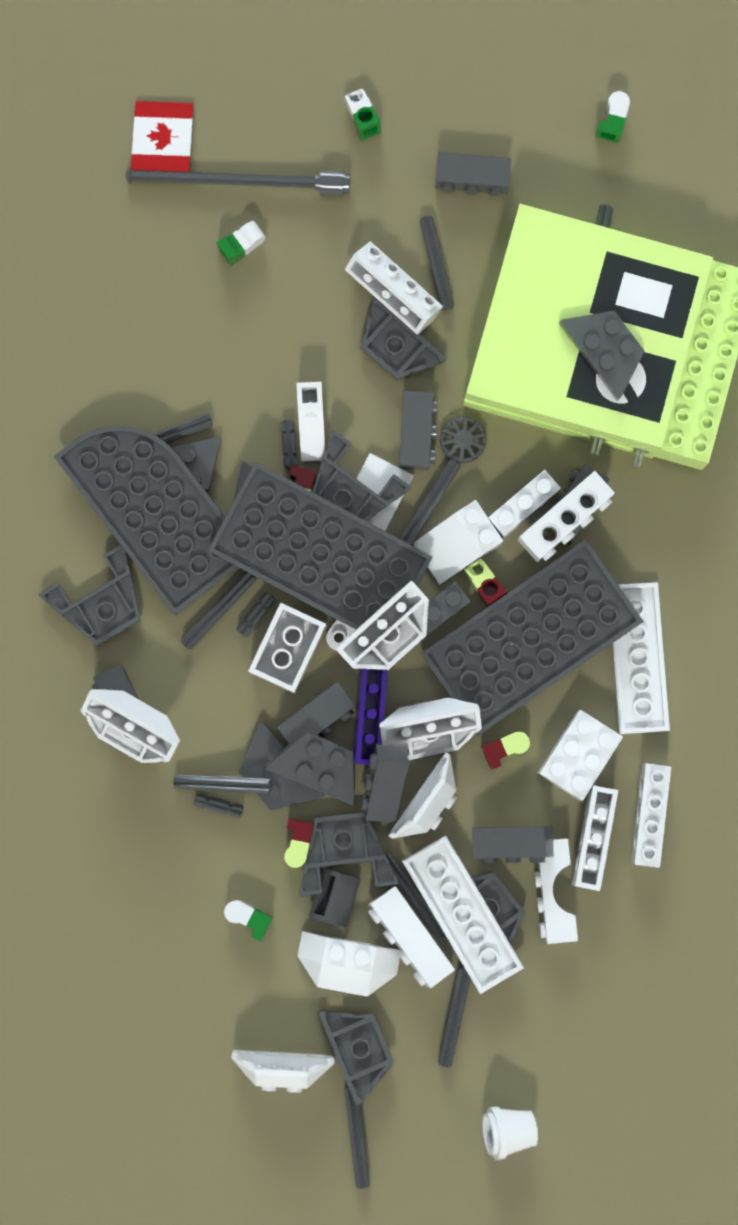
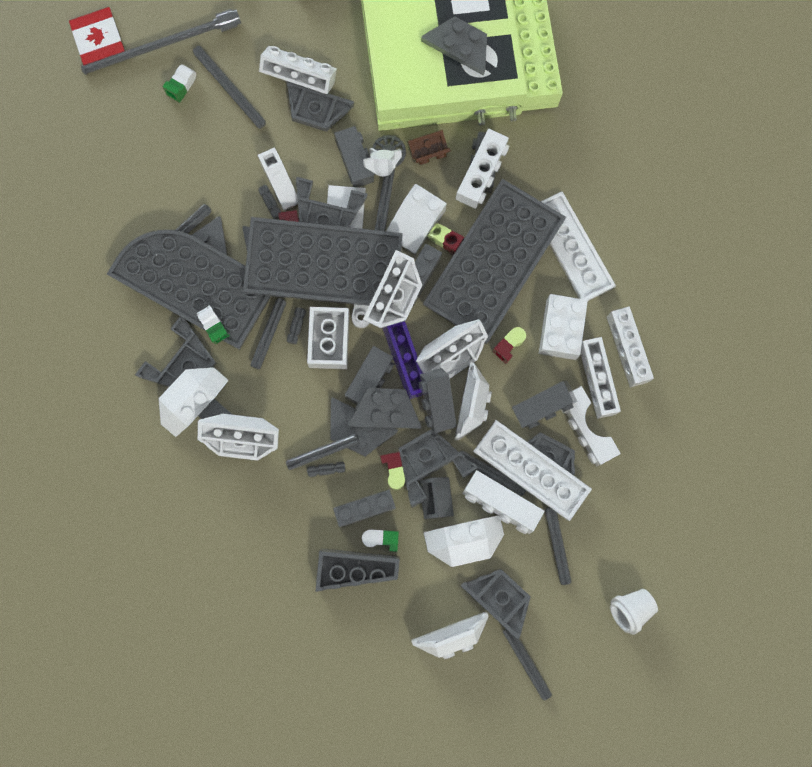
camera: 25 degrees left, 5 degrees down
(92, 651) = (189, 397): none -> white wedge
(155, 574) = (213, 325): none -> leg
(201, 939) = (351, 568): none -> dark grey wedge
(243, 873) = (364, 508): none -> dark grey brick
(299, 271) = (229, 87): none -> dark grey axle
(436, 262) = (319, 44): dark grey axle -> none
(447, 453) = (382, 161): none -> white piece
(514, 456) = (428, 147): none -> reddish brown bracket
(524, 503) = (449, 173): white arch -> none

